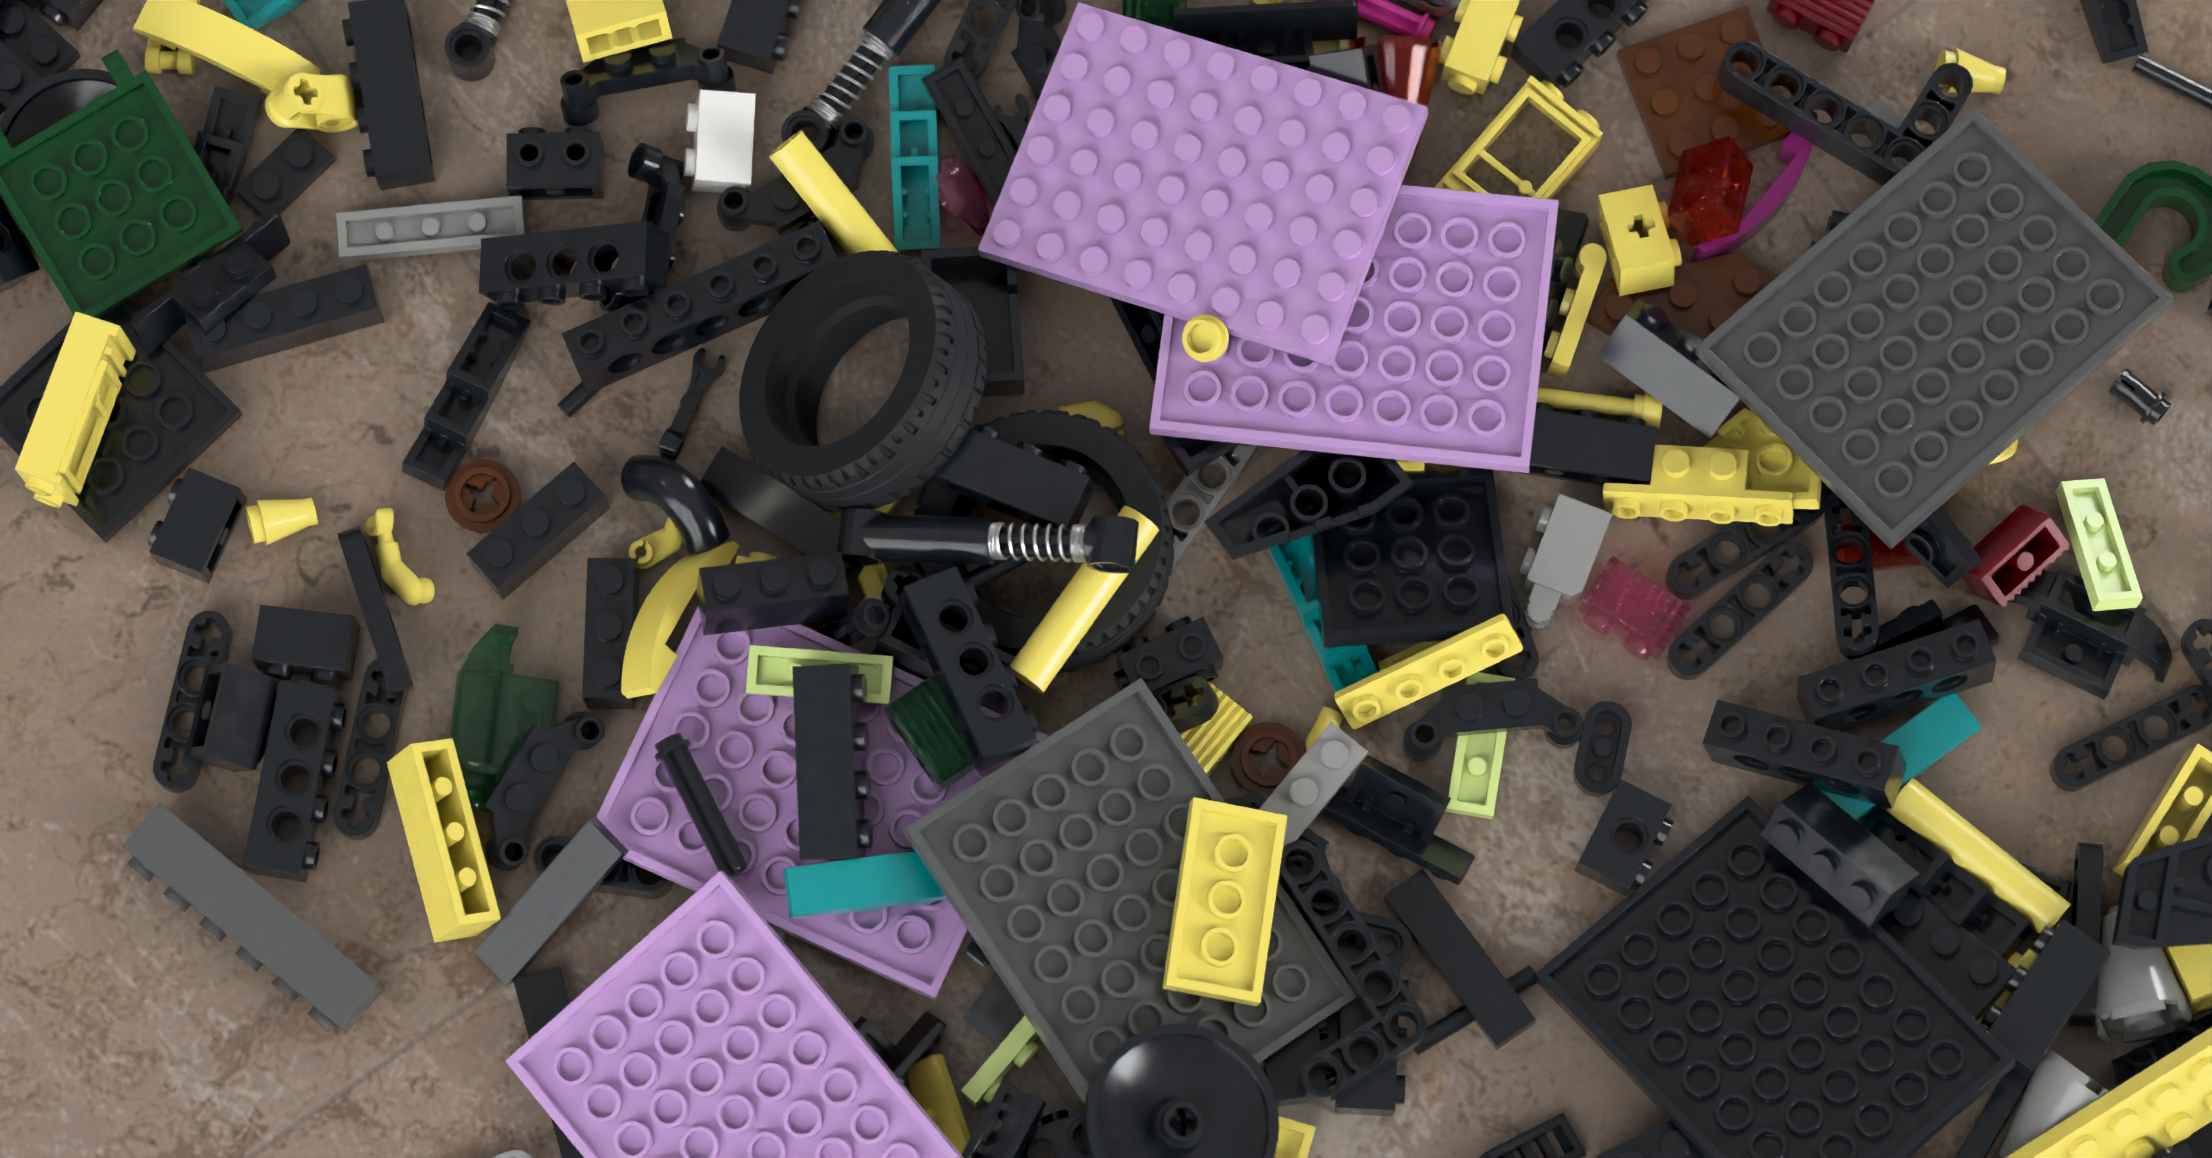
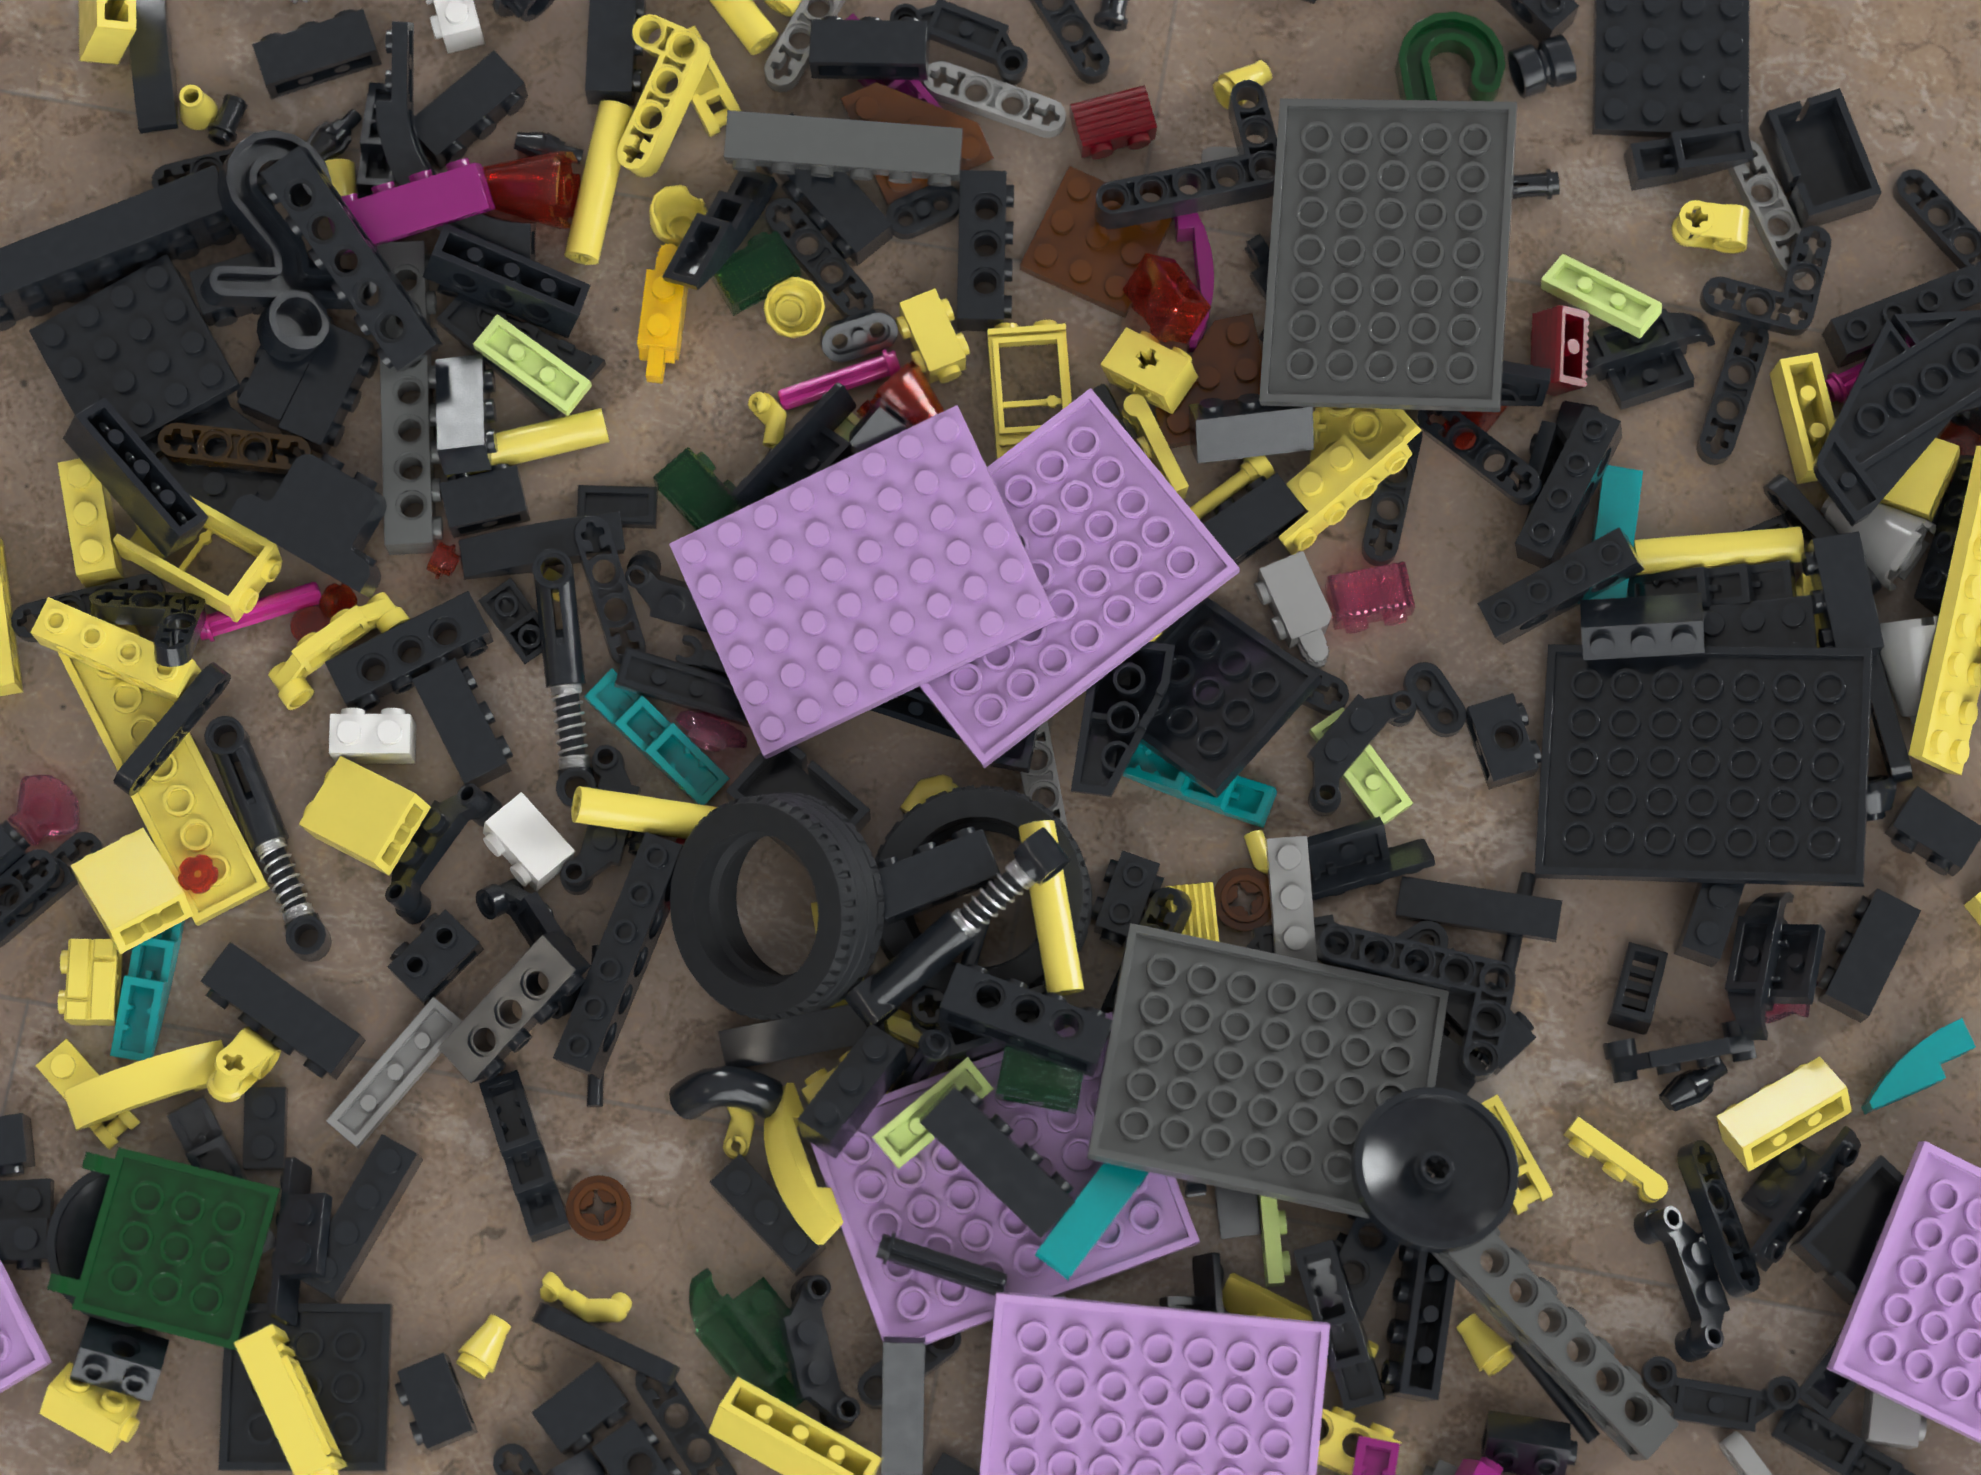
camera: 45 degrees left, 0 degrees up
(538, 530) = (657, 1195): black brick -> none
(701, 379) = (670, 1026): black piece -> none
(1205, 338) = (963, 676): light yellow plate -> none
(1225, 902) = (1320, 1010): light yellow plate -> none
(1427, 669) = (1285, 754): light yellow bracket -> none
(1739, 610) = (1426, 537): black beam -> none

